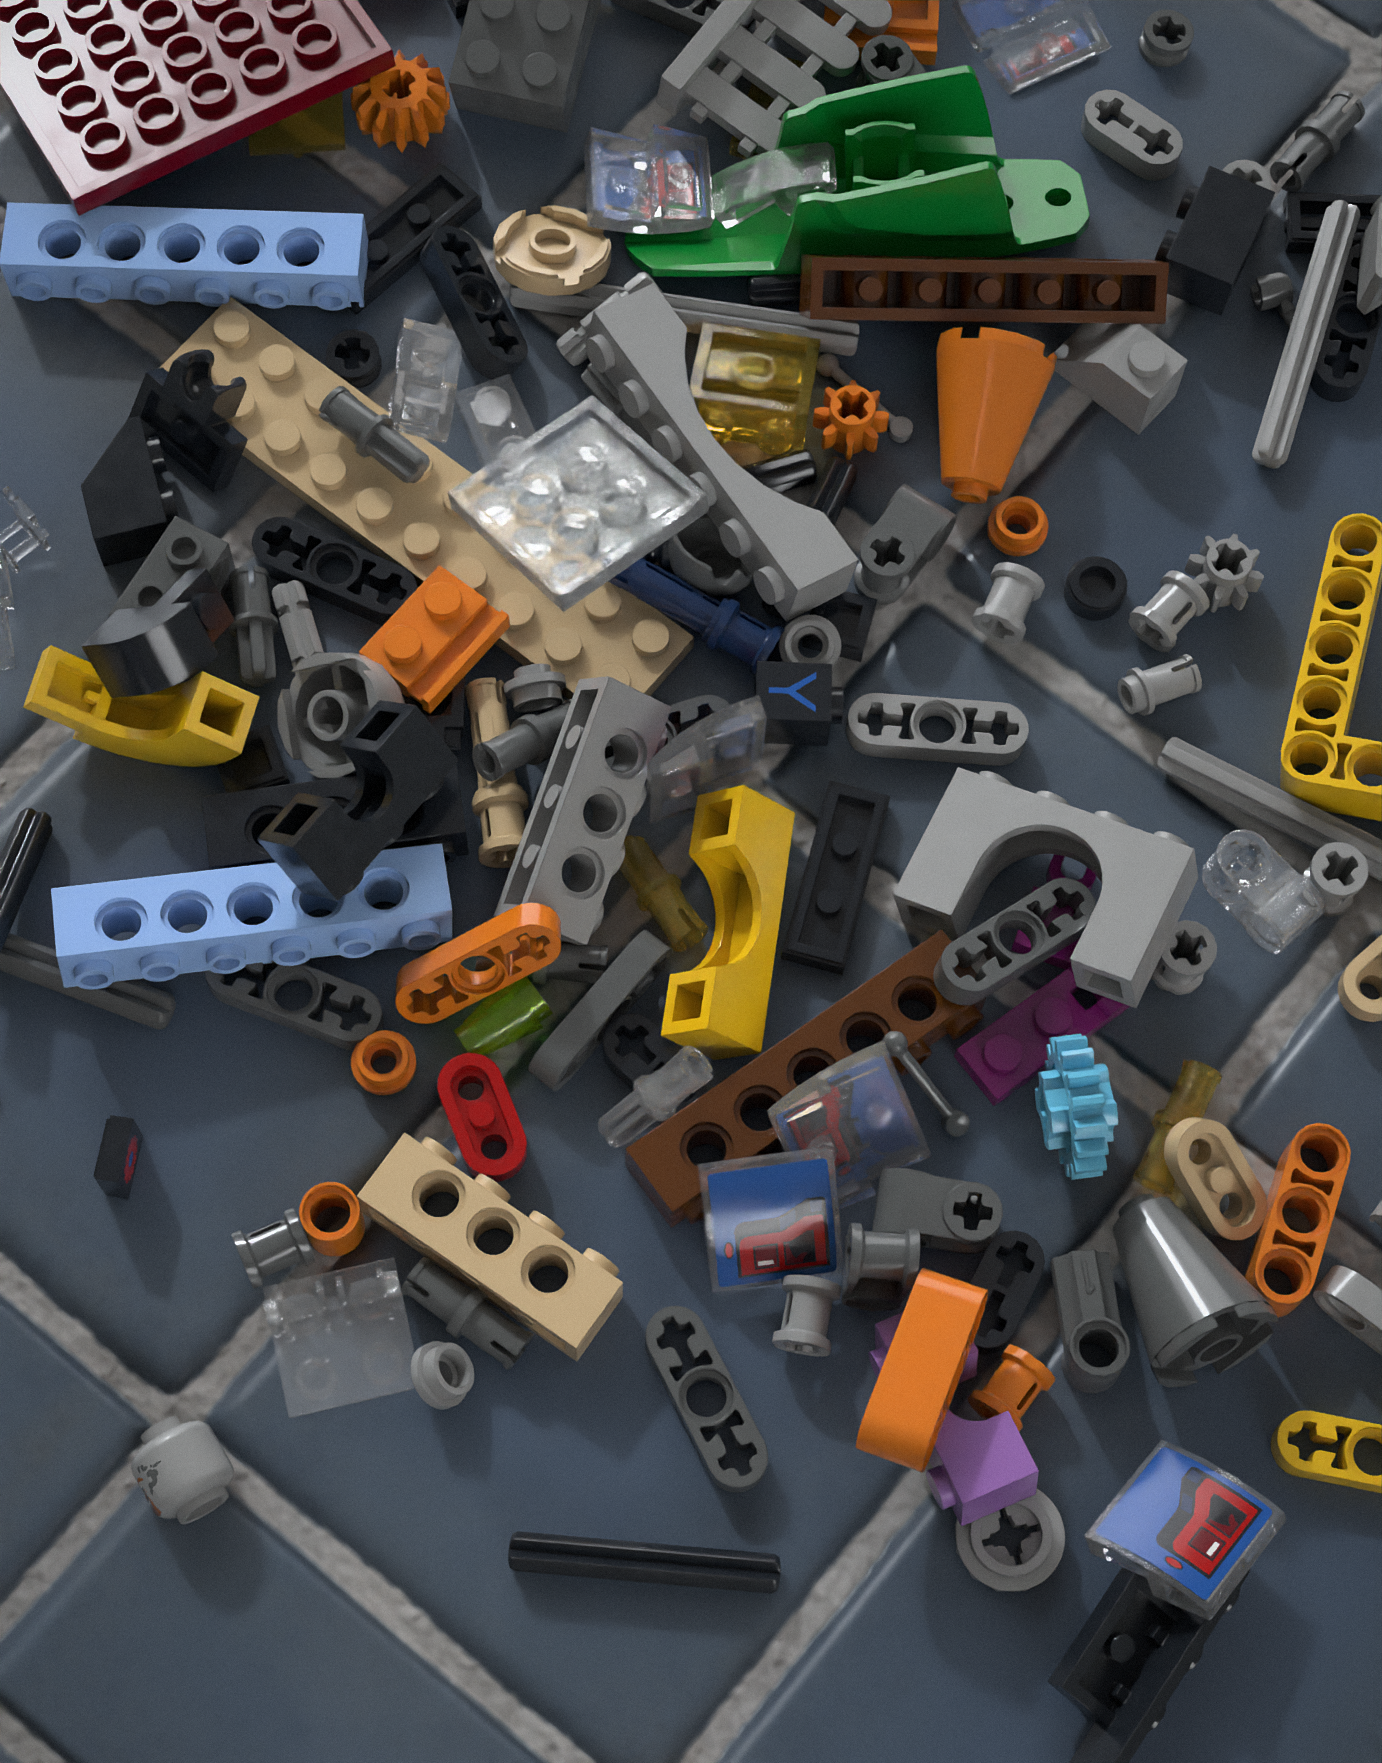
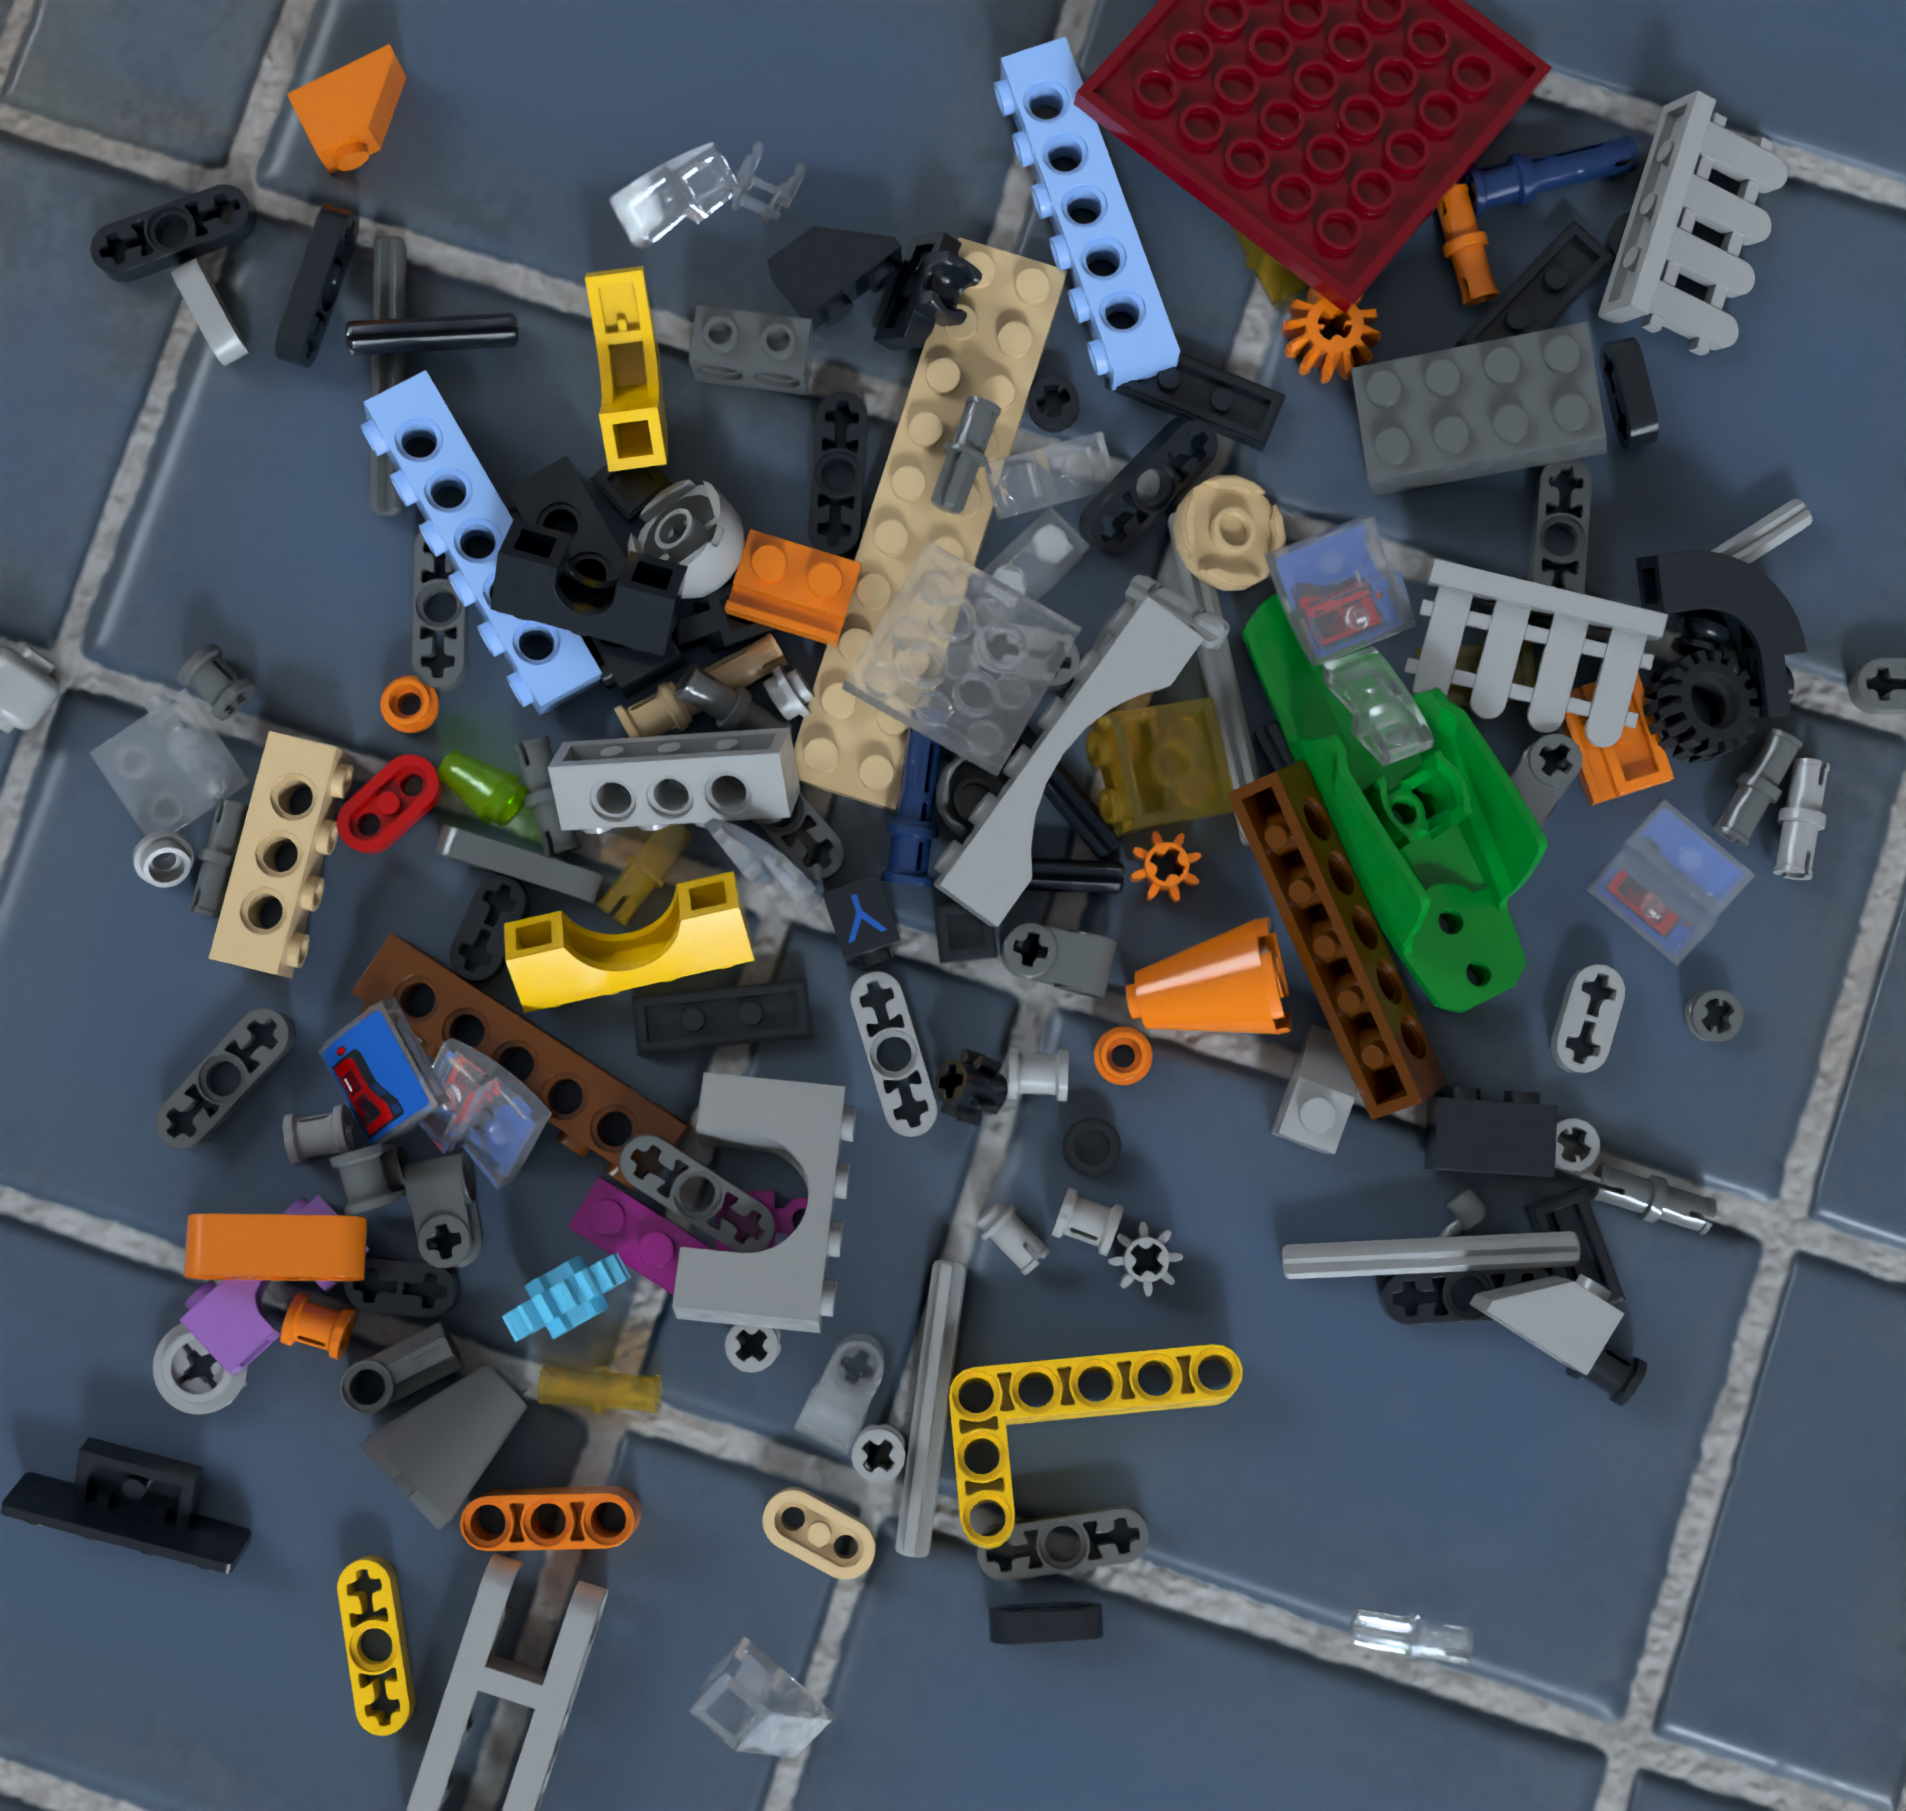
camera: 75 degrees right, 15 degrees up
(118, 1156) = (243, 526): black tile -> none
(162, 643) = (678, 366): black brick -> none
(253, 626) = (754, 430): dark grey axle -> none
(296, 621) = (768, 471): light grey axle -> none
(325, 1196) = (239, 706): orange beam -> none
(491, 940) = (506, 747): orange beam -> none
(644, 1562) = (76, 1080): black axle -> none
(655, 1096) = (449, 941): clear axle -> none
(805, 626) = (906, 914): light grey plate -> none
(899, 427) = (1185, 914): light grey hinge -> none
(953, 1120) = (539, 1197): dark grey hinge -> none
(1013, 655) = (971, 1087): none -> black gear
(1185, 1529) = (245, 1509): slope -> none
(1212, 1174) = (558, 1433): tan plate -> none

